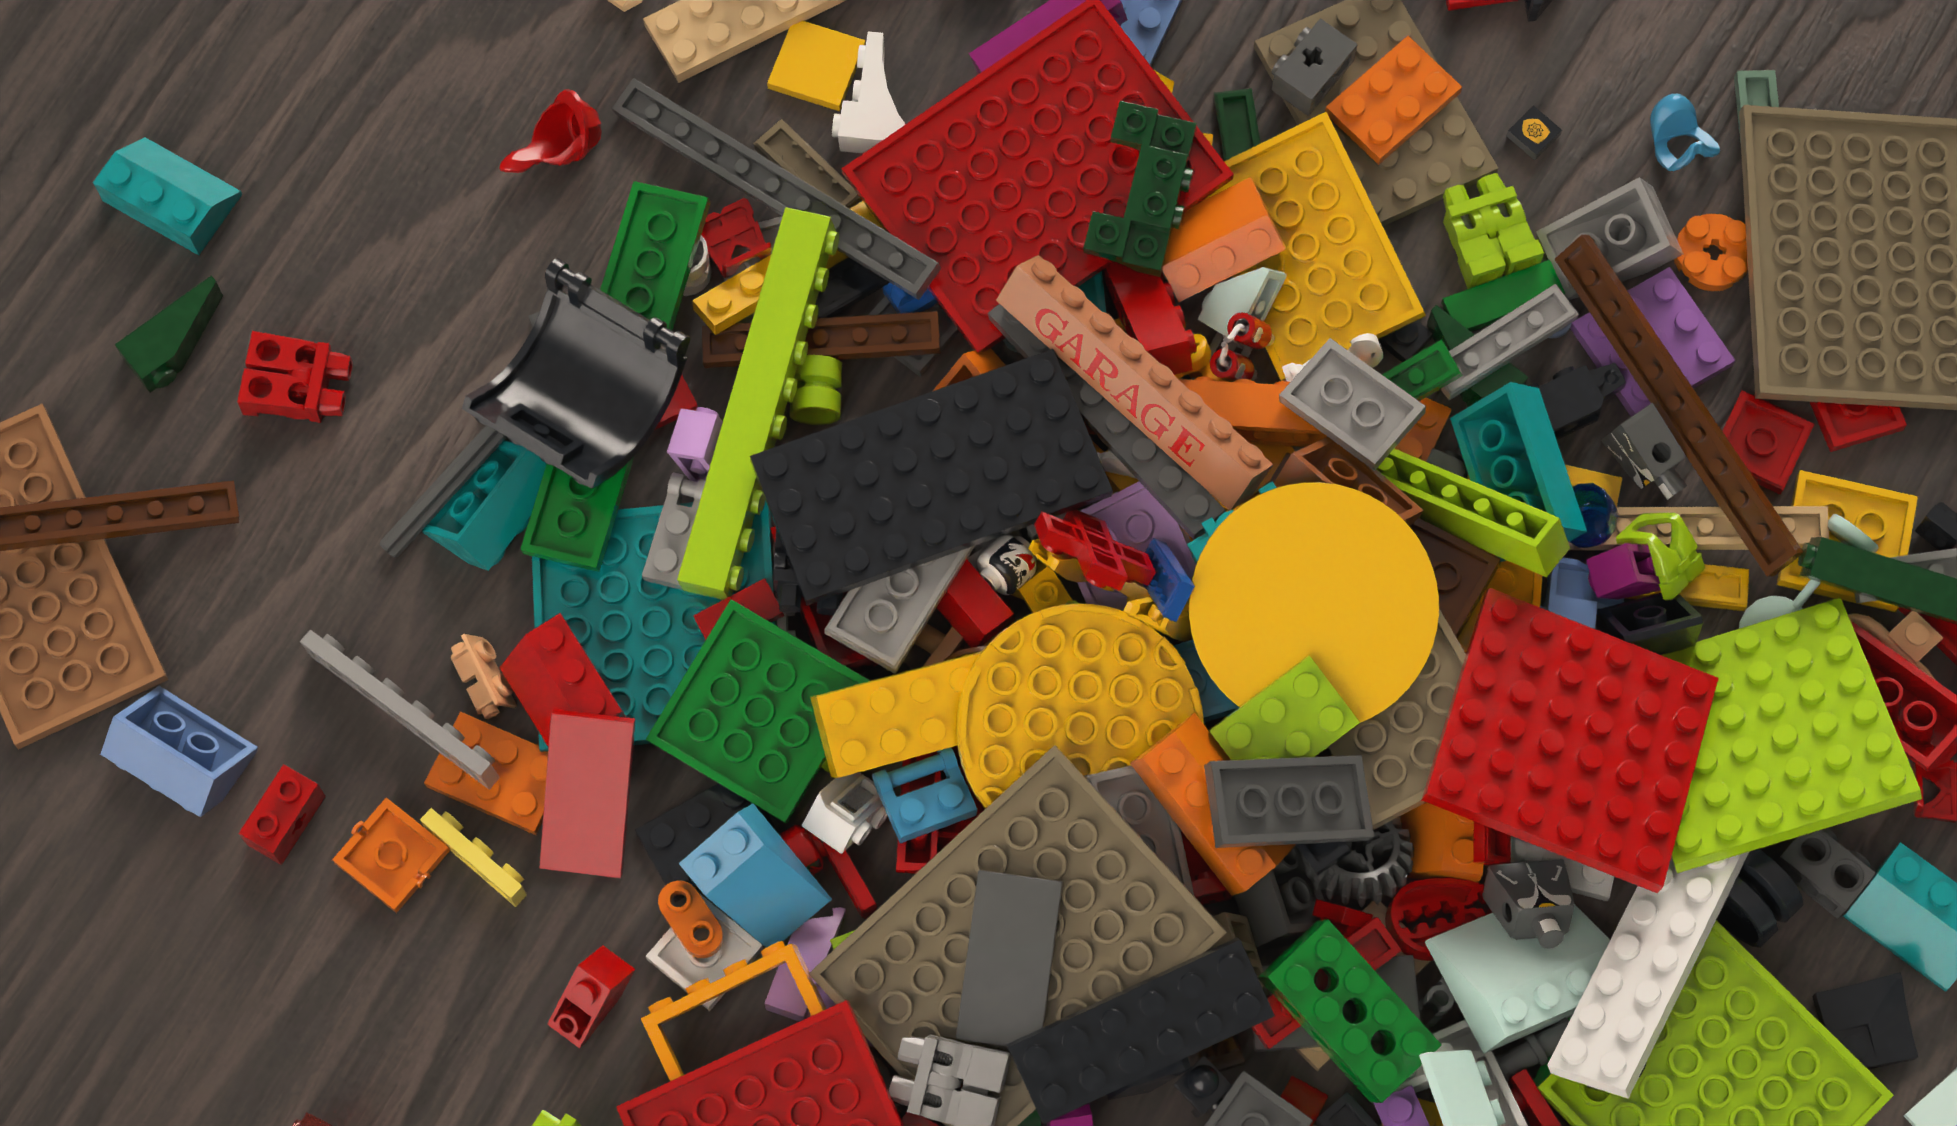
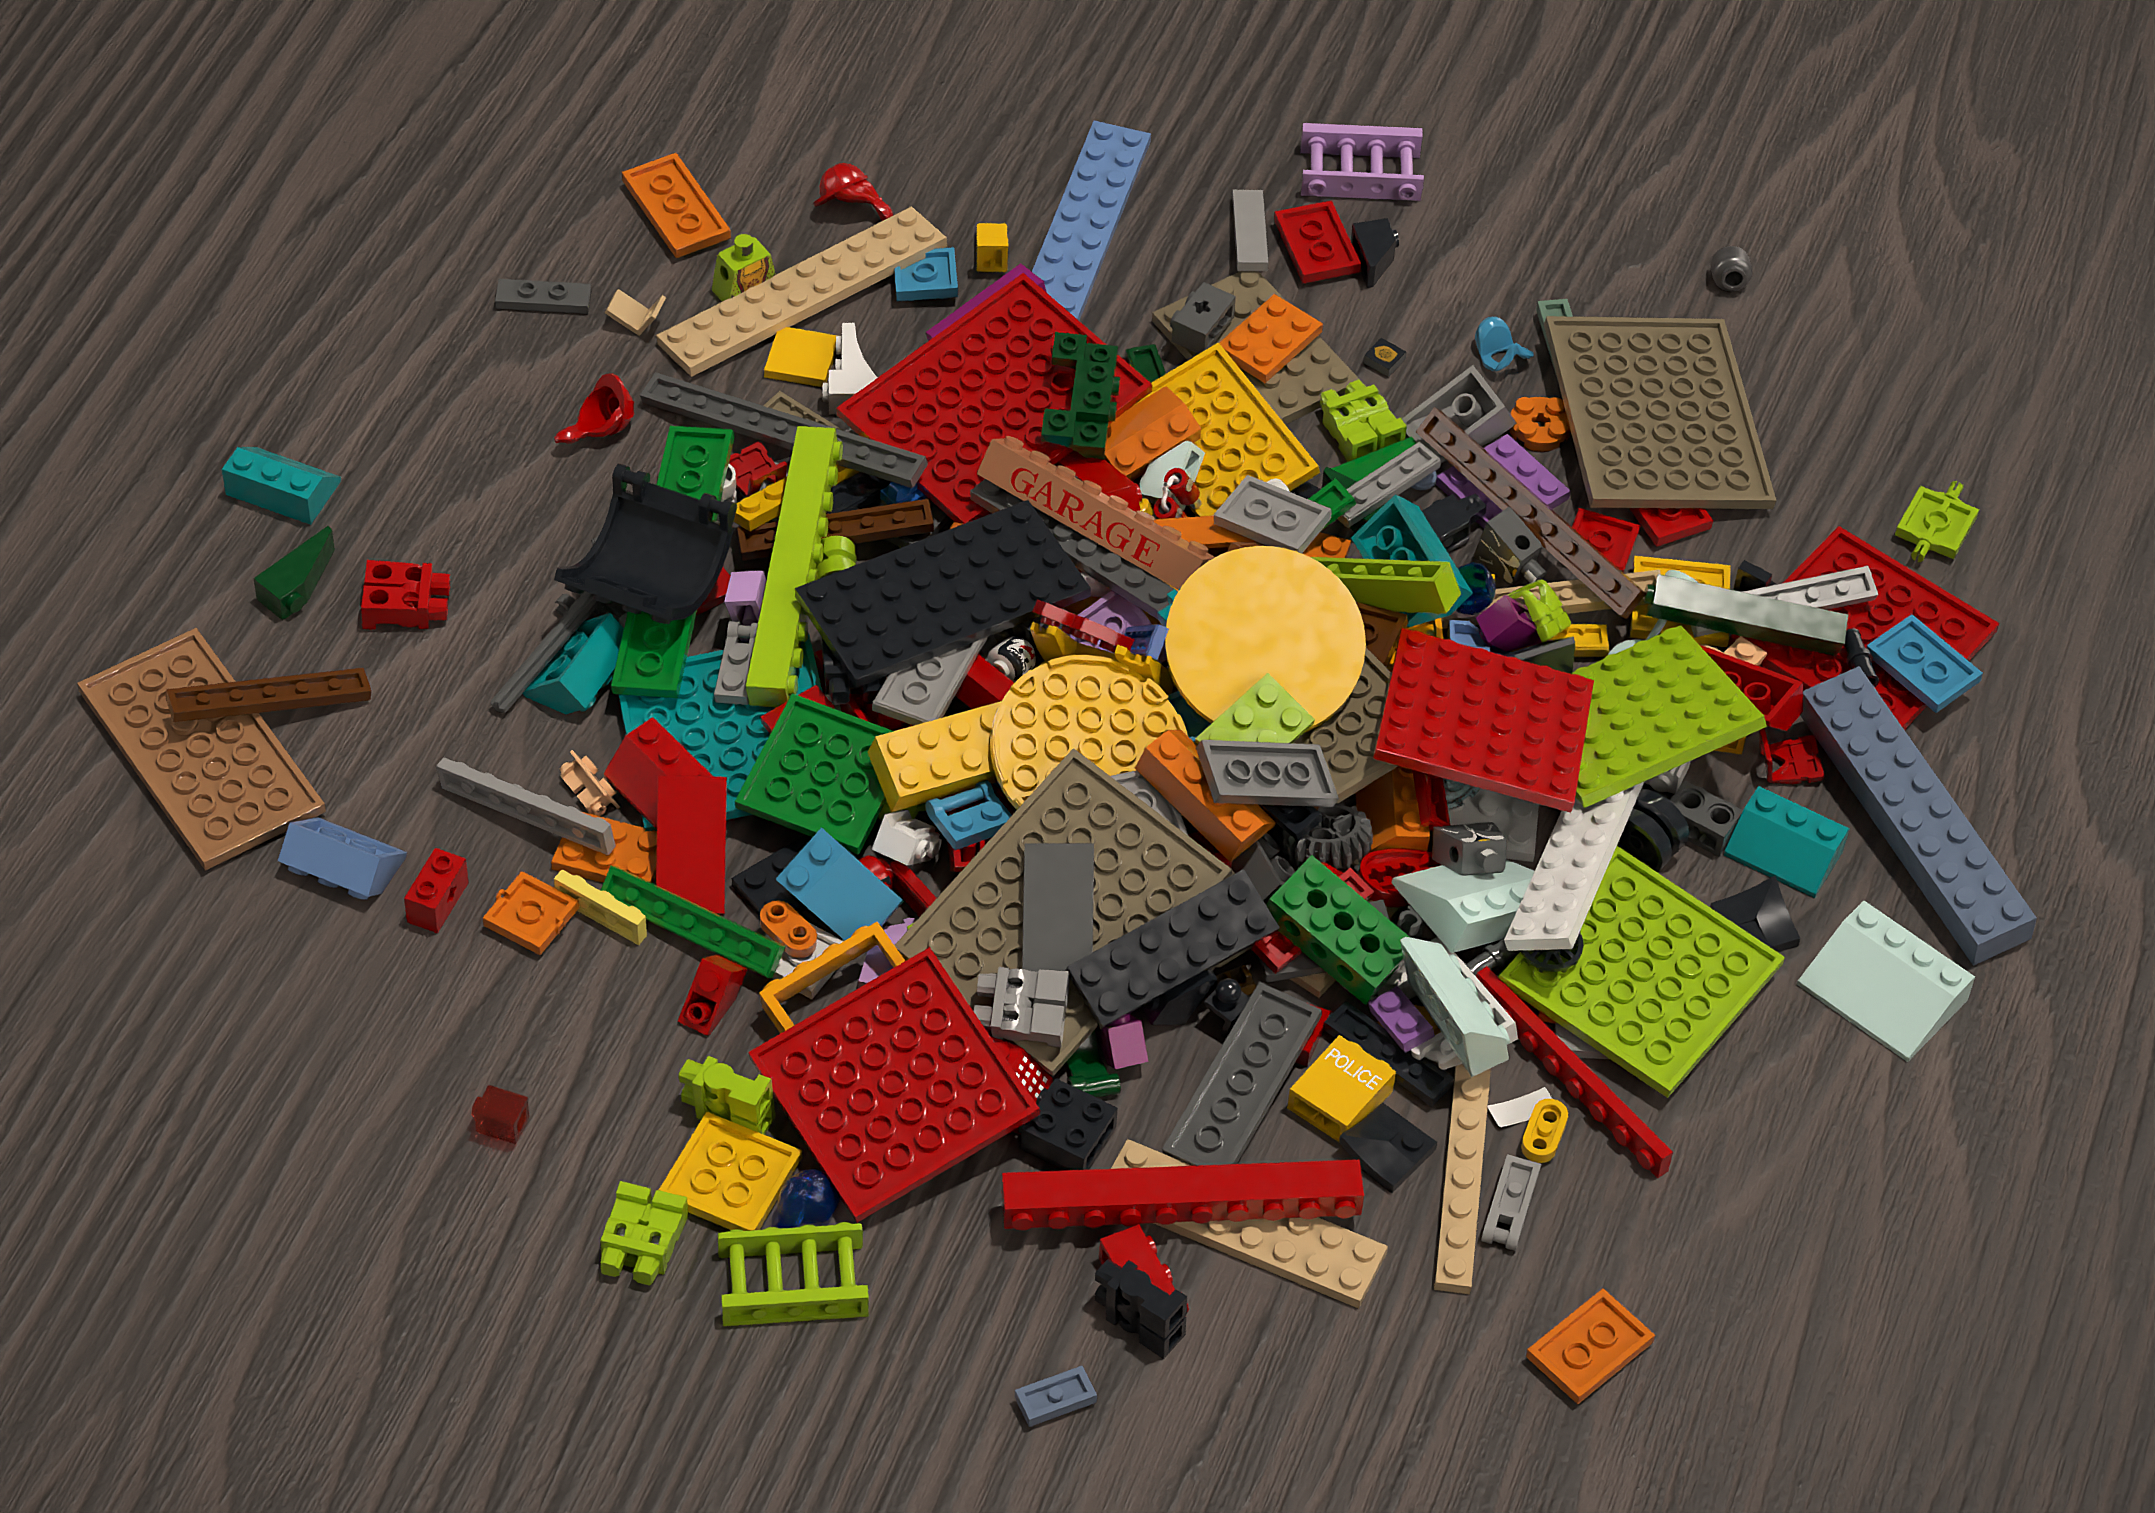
camera: 10 degrees left, 20 degrees down
(578, 894) = (695, 922): none -> green tile

